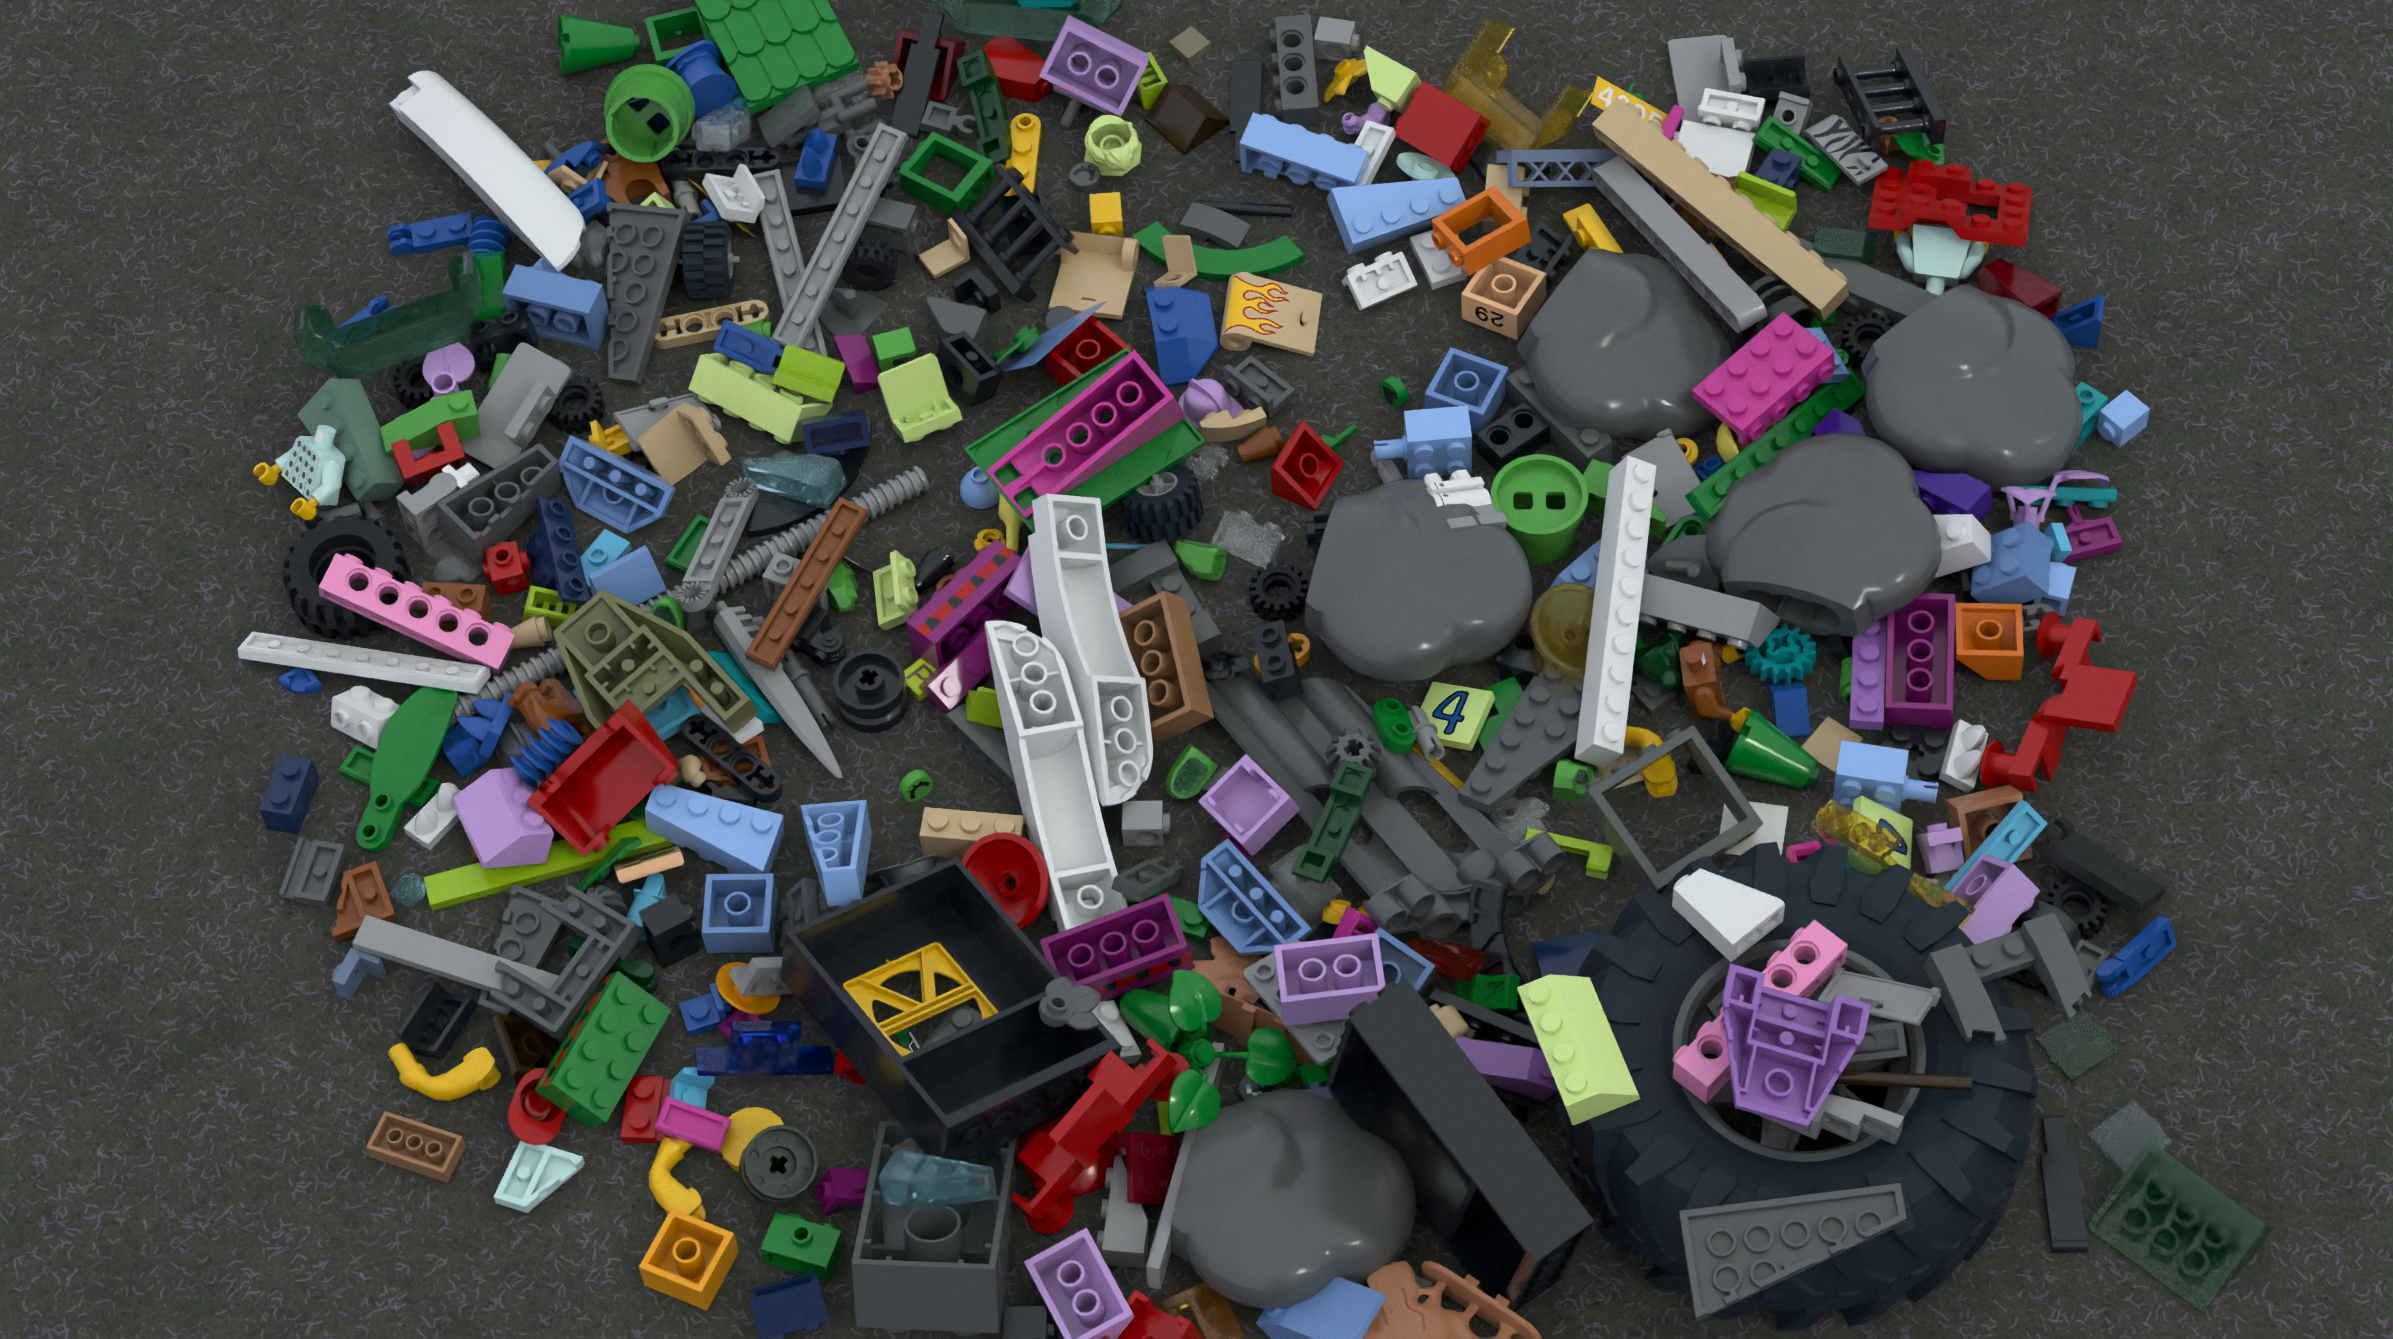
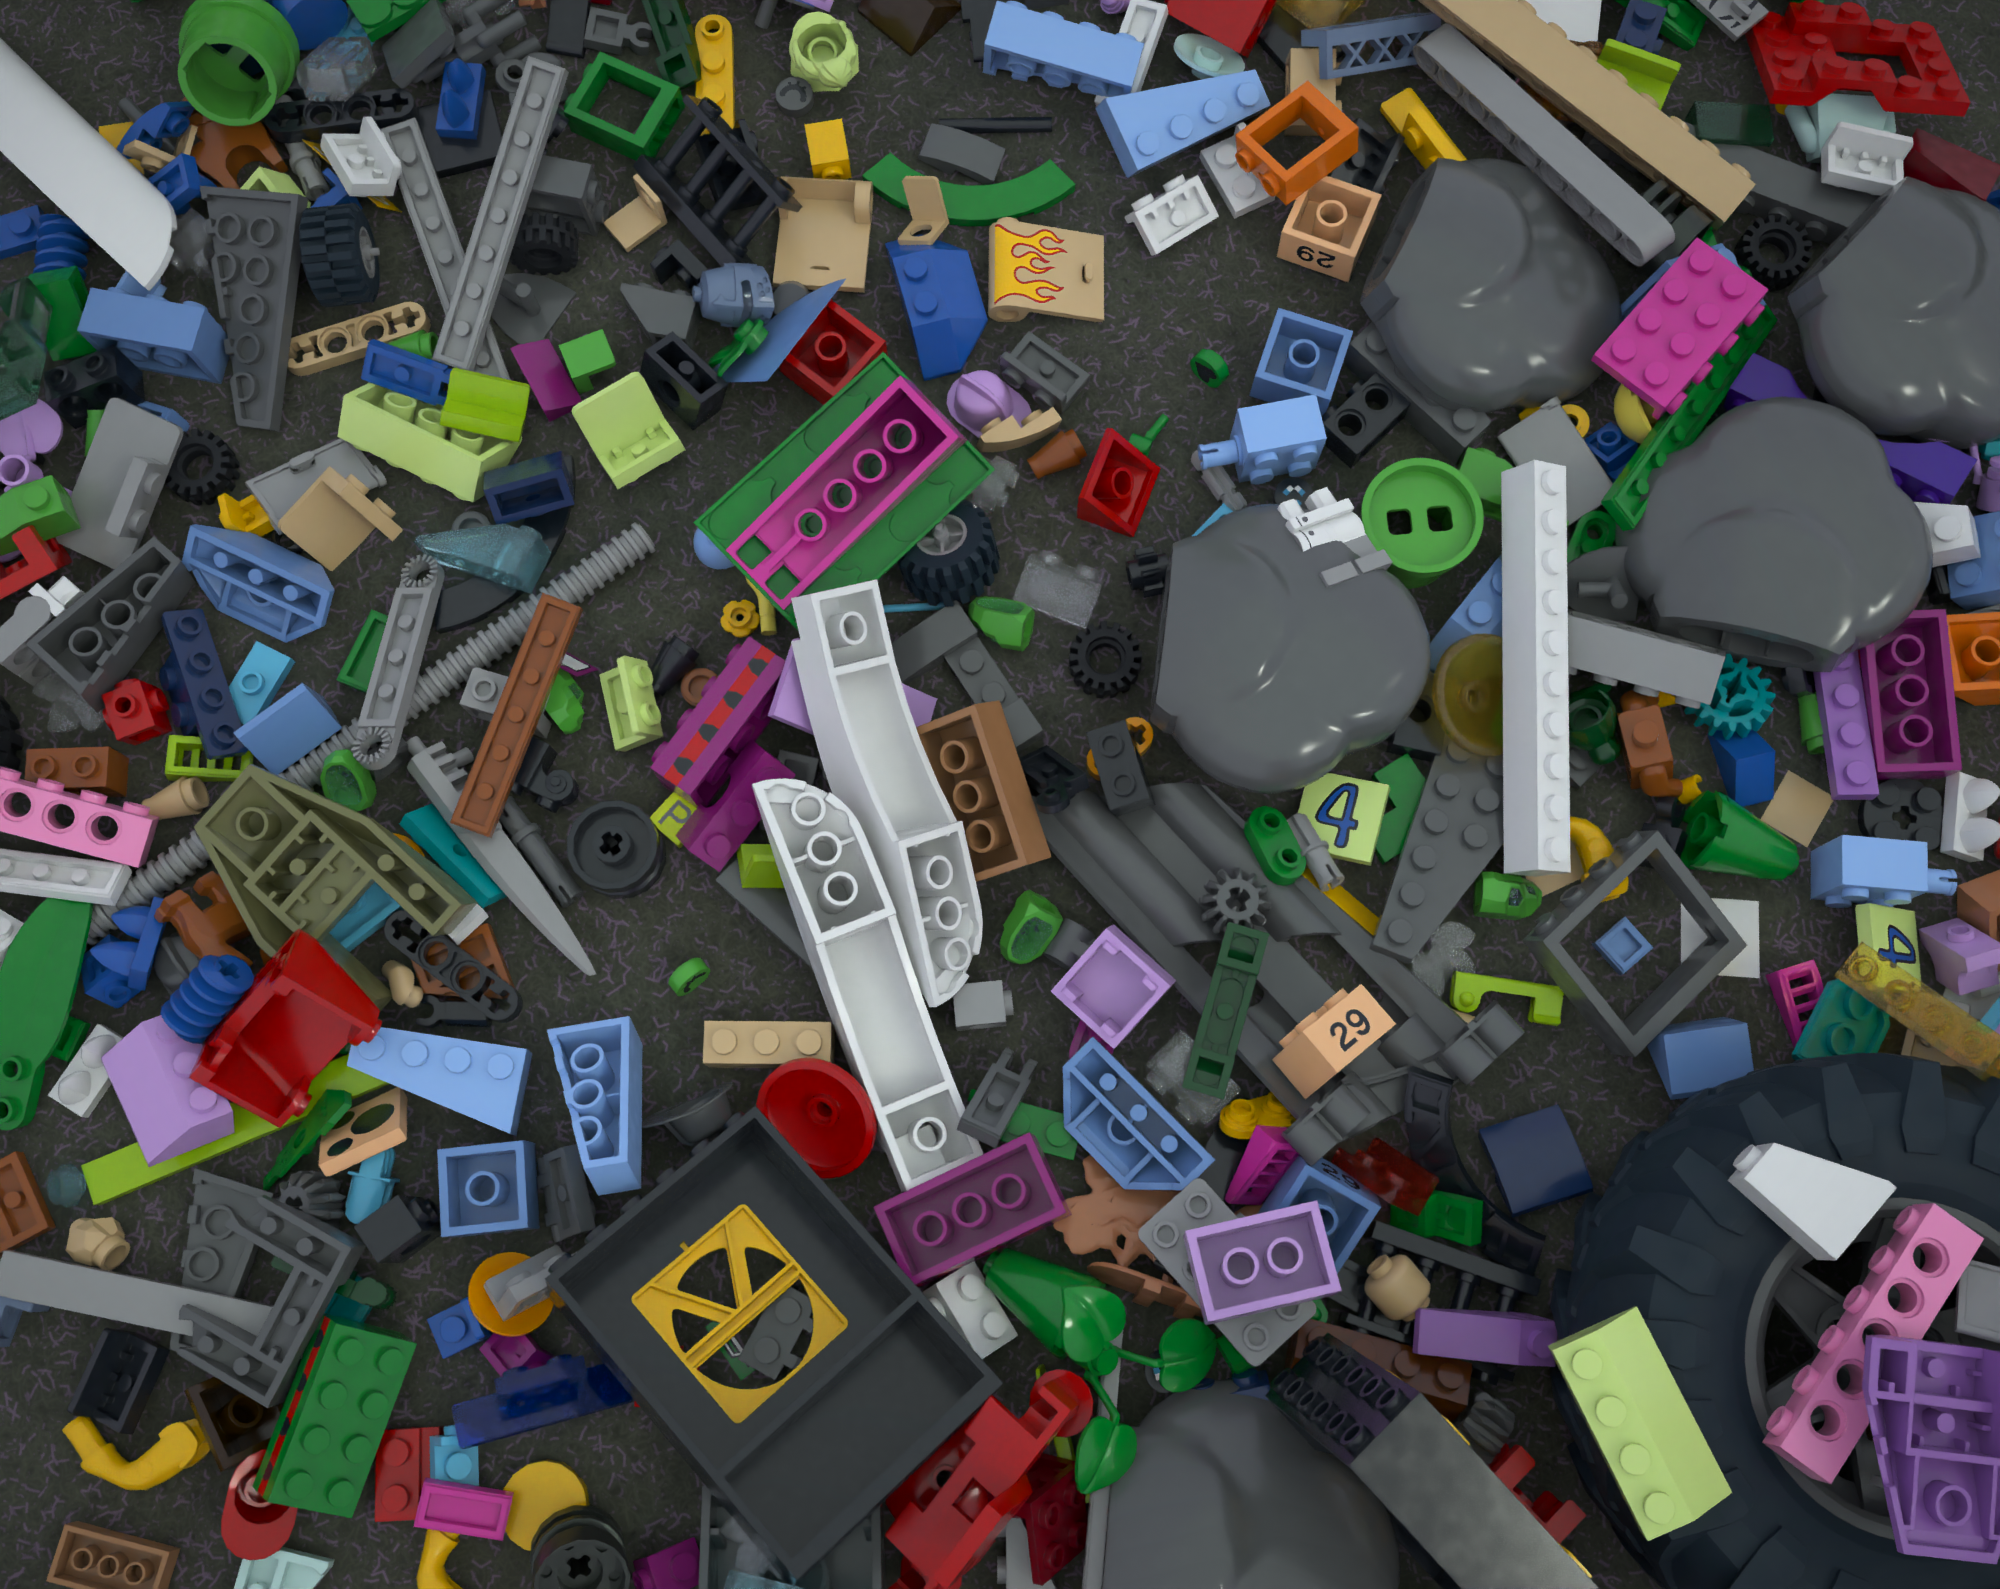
camera: 10 degrees left, 20 degrees up
(433, 923) = (97, 1242): none -> tan rock
(1016, 307) = (735, 294): none -> sand blue helmet
(1069, 1005) = (935, 1327): dark grey plate -> none
(1415, 844) = (1331, 1039): none -> light nougat brick
(1670, 827) = (1622, 946): none -> medium blue tile
(1942, 270) = (1864, 158): none -> white bracket

